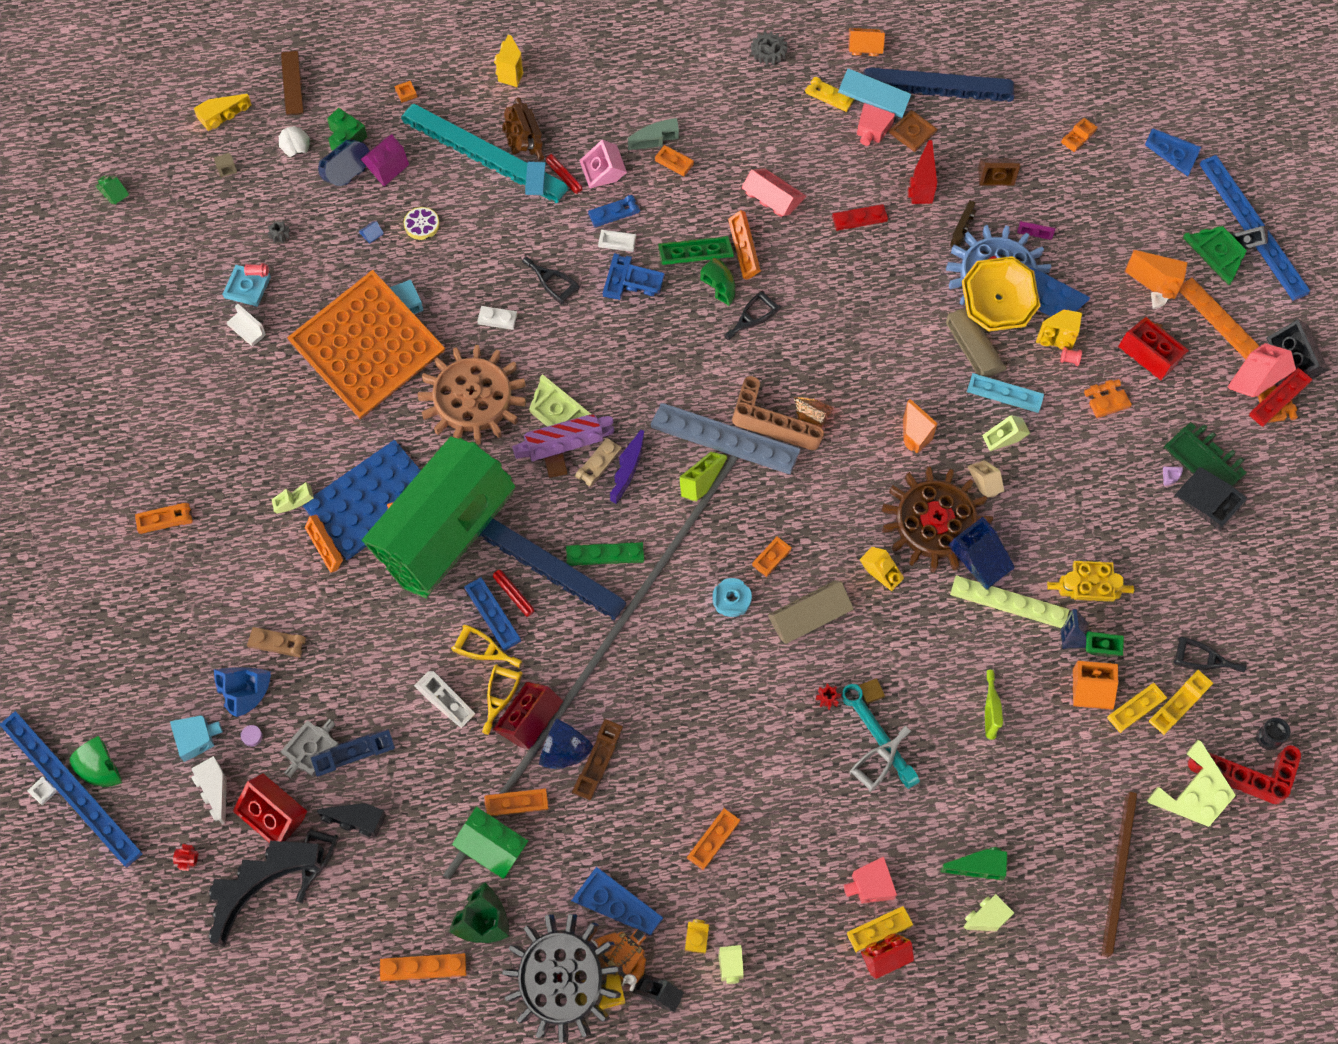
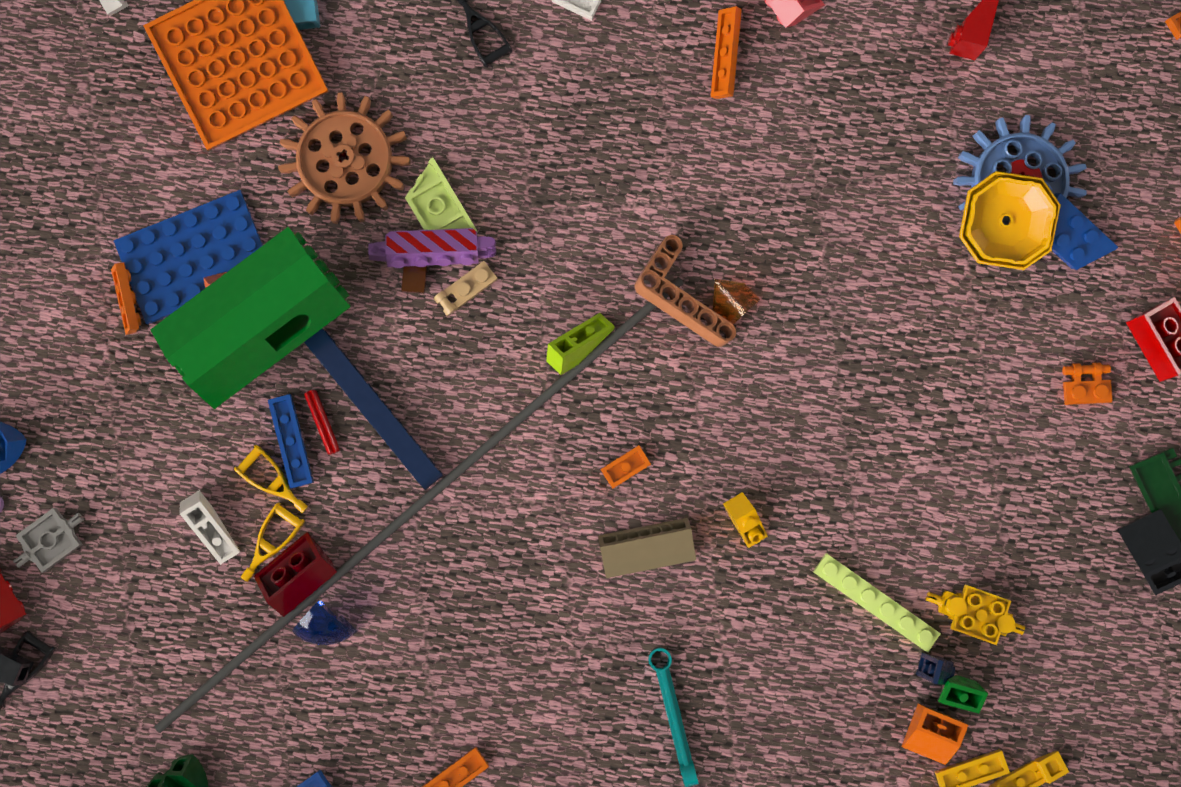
camera: 15 degrees right, 20 degrees up
(276, 642) = (43, 401): medium nougat plate -> none
(288, 501) = (102, 232): yellowish green slope -> none
(351, 751) = (90, 557): dark blue slope -> none
(359, 817) = (82, 638): black slope -> none
(489, 842) = (212, 709): green slope -> none
(497, 317) = (403, 63): white plate -> none
(516, 802) = (252, 672): orange plate -> none
(598, 760) = (355, 651): reddish brown slope -> none
(604, 554) = (438, 405): green plate -> none
(616, 275) = (560, 50): blue plate -> none
(629, 461) = (501, 298): dark purple slope -> none
(644, 279) = (590, 66): blue bracket -> none
(695, 250) = (665, 43): green slope -> none
(719, 277) = (681, 93): green brick -> none
(725, 438) = (620, 303): sand blue plate -> none
(736, 607) = (558, 491): medium azure plate -> none
(750, 321) = (700, 157): black piece -> none
(824, 699) = (628, 649): red gear -> none
(859, 217) = (879, 54): red plate -> none
(871, 691) = (683, 660): pearl gold tile -> none
(881, 750) = (683, 737): light grey piece -> none
(917, 427) = (846, 360): slope -> none
(925, 521) = (830, 464): reddish brown gear -> none
(963, 225) = (1000, 104): dark brown plate -> none
(975, 344) = (956, 269): dark tan brick -> none
(982, 553) = (864, 543): clear blue slope -> none
(987, 478) = (906, 445): tan slope -> none
(993, 709) = (810, 725): lime piece -> none
(998, 172) = (1071, 42): reddish brown slope -> none
(1005, 393) = (968, 342): medium azure plate -> none
(1006, 433) = (950, 395): yellowish green slope -> none
(1036, 230) = (1087, 136): magenta slope -> none
(1060, 329) = (1066, 285): yellow slope -> none
(1071, 356) = (1064, 318): coral bush -> none
(1171, 474) = (1124, 503): lavender tile -> none
(1213, 655) = (1081, 737): black piece -> none

